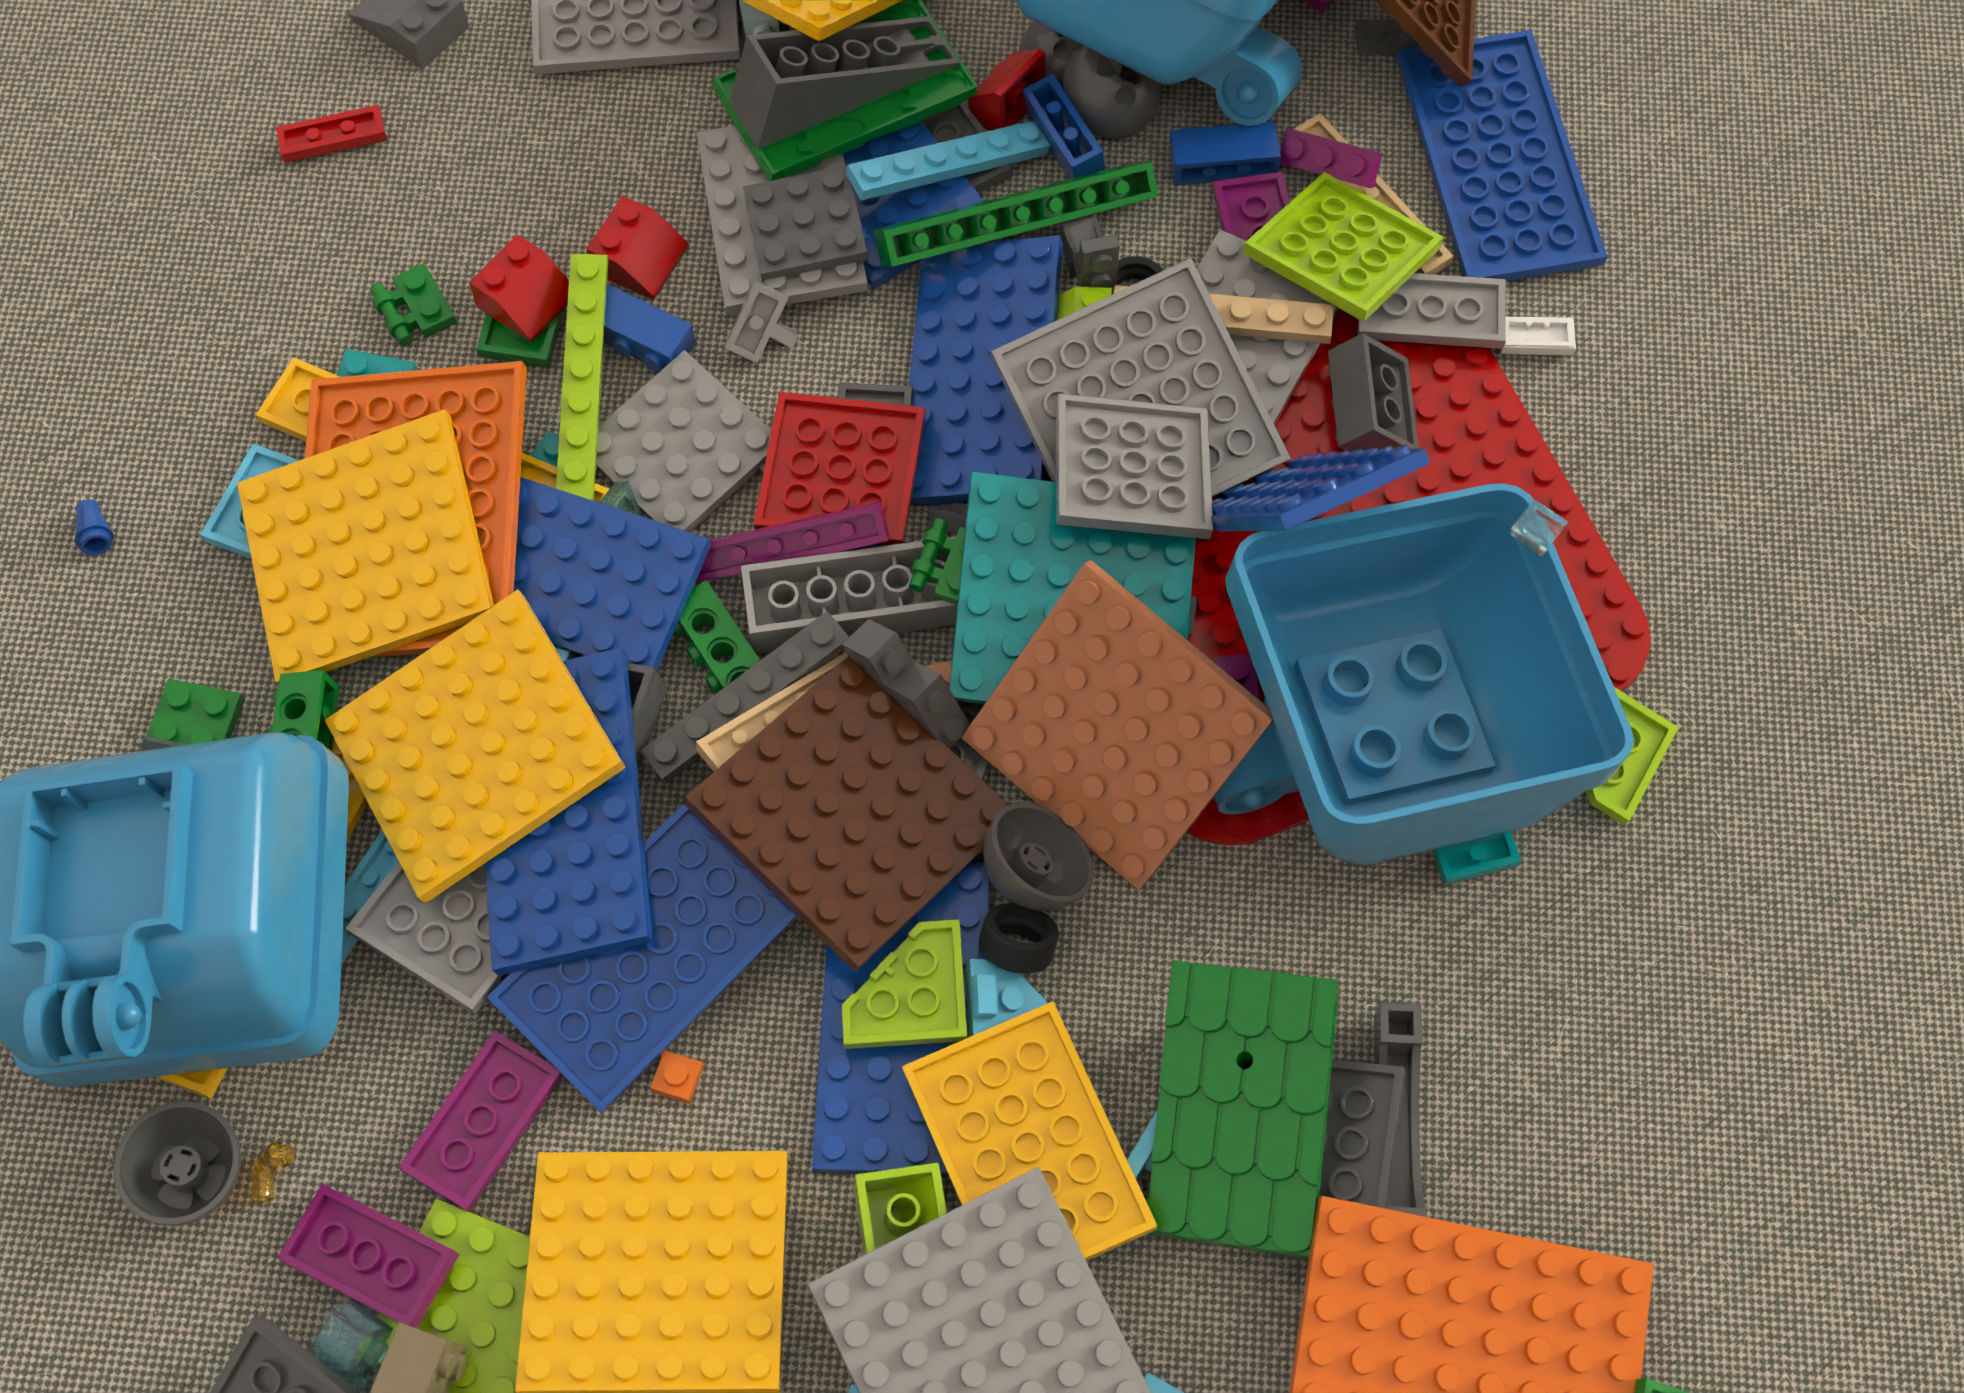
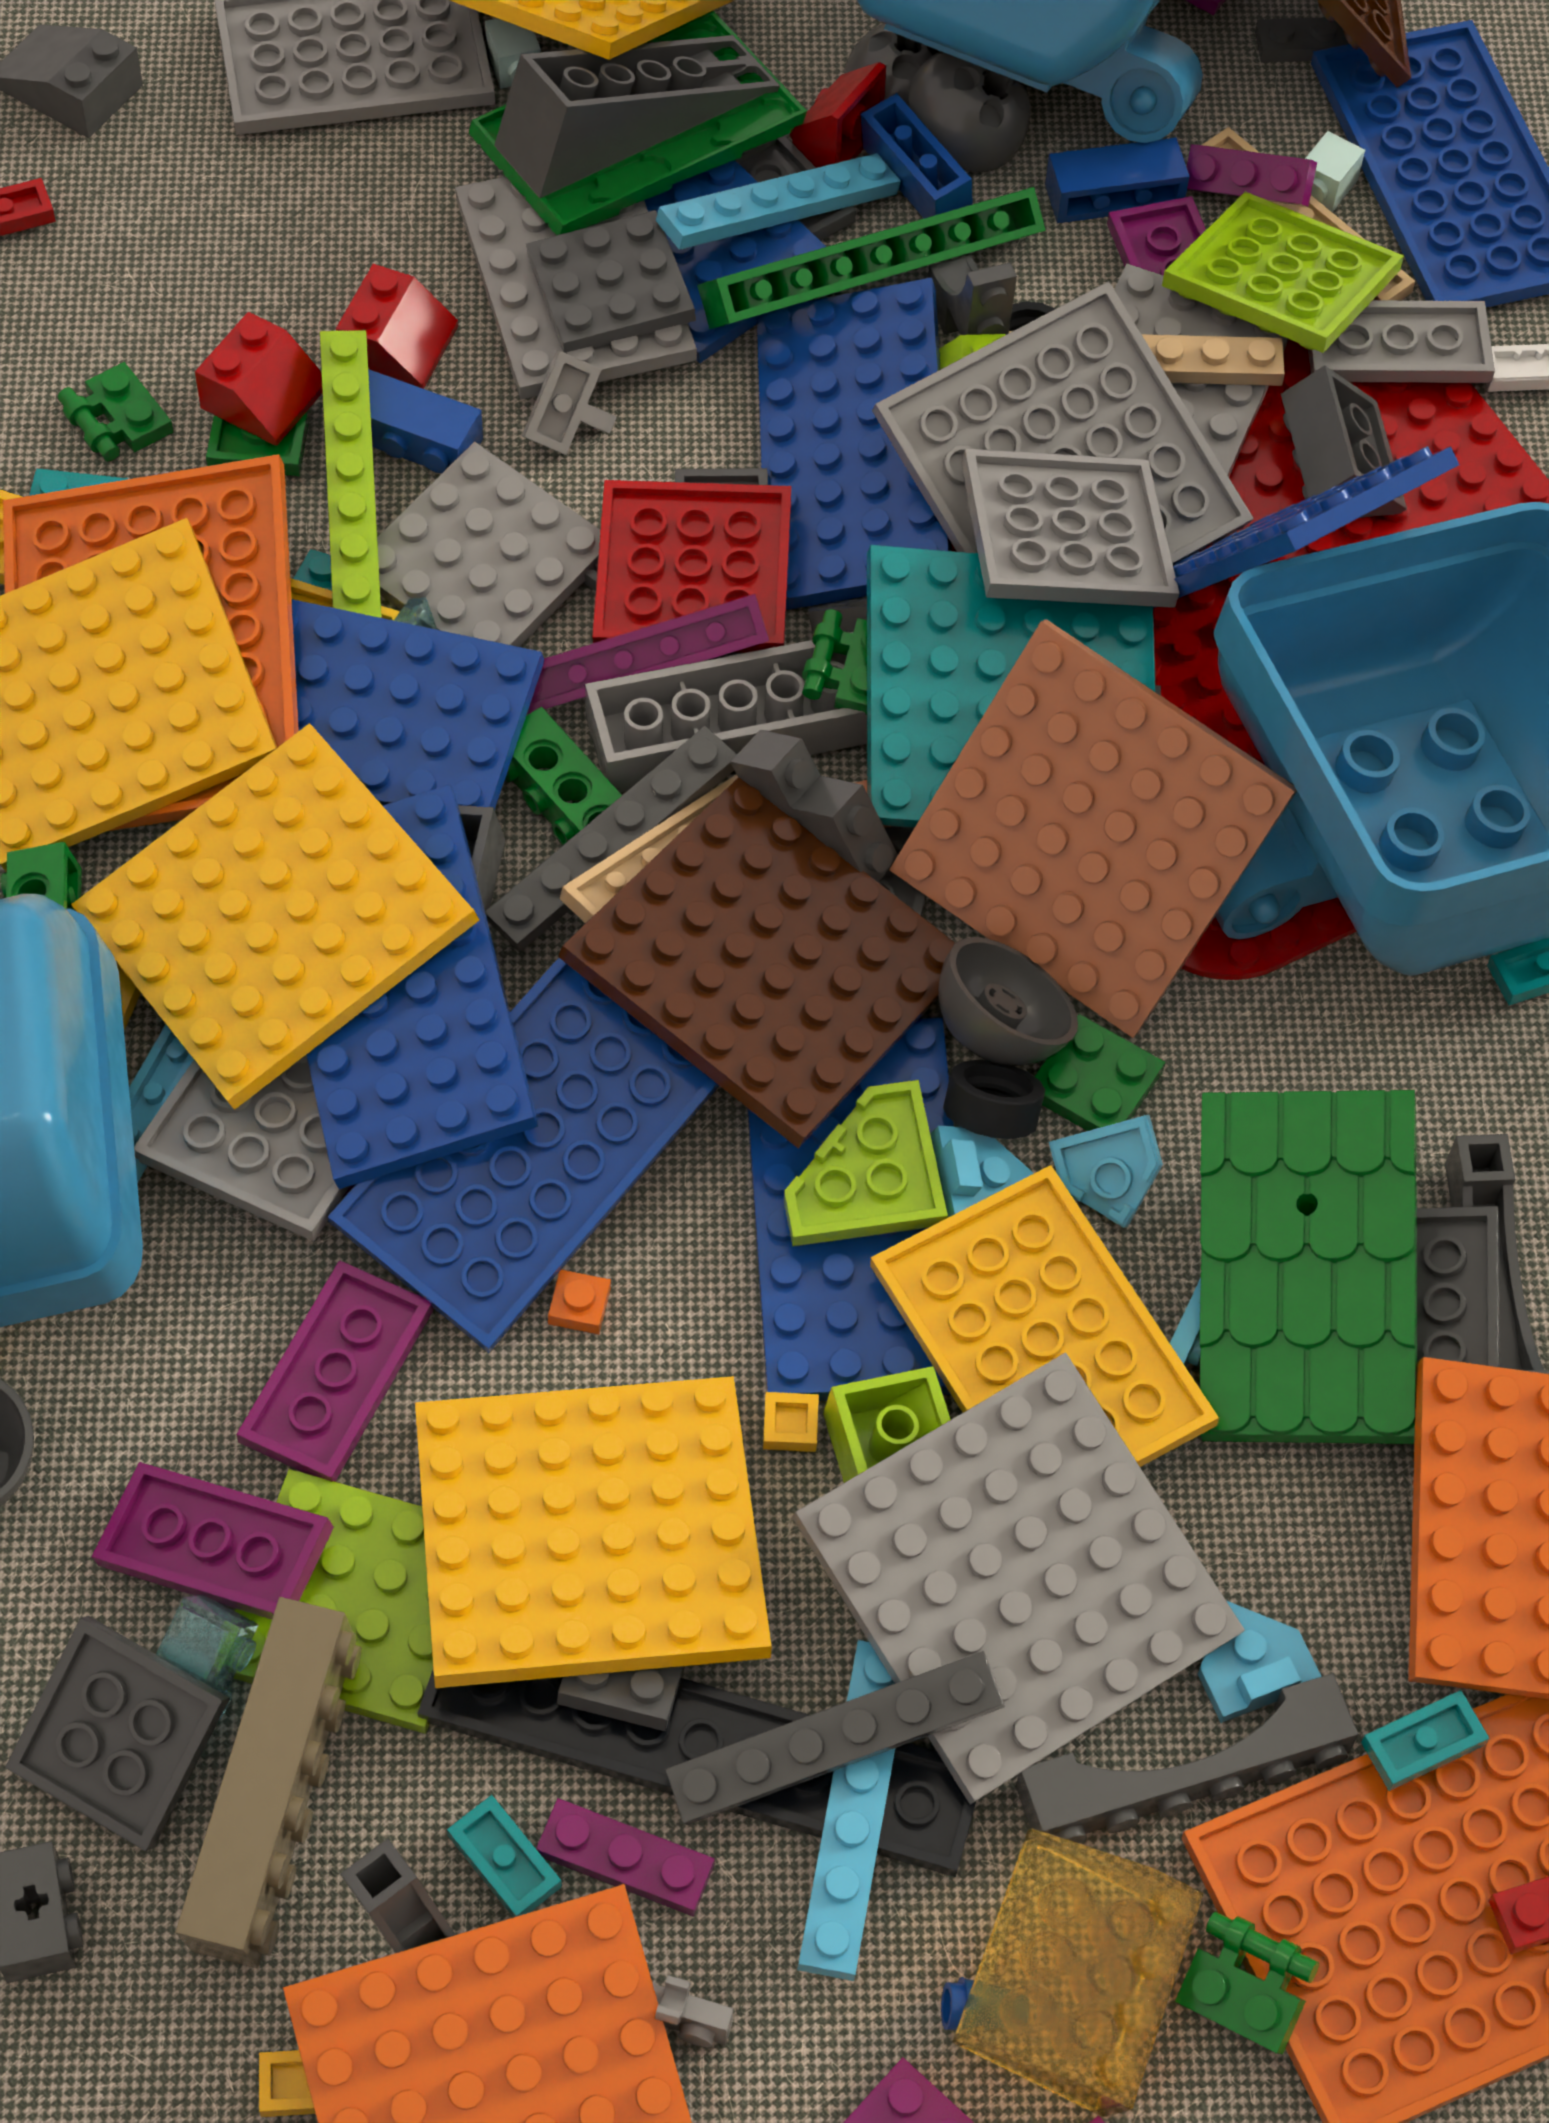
camera: 10 degrees left, 5 degrees down
(265, 1167) = (59, 1451): clear yellow arm -> none
(826, 1192) = (790, 1422): none -> yellow plate
(1103, 1000) = (1110, 1166): none -> medium azure plate
(1106, 923) = (1098, 1077): none -> green plate
(1401, 155) = (1336, 169): none -> light aqua brick

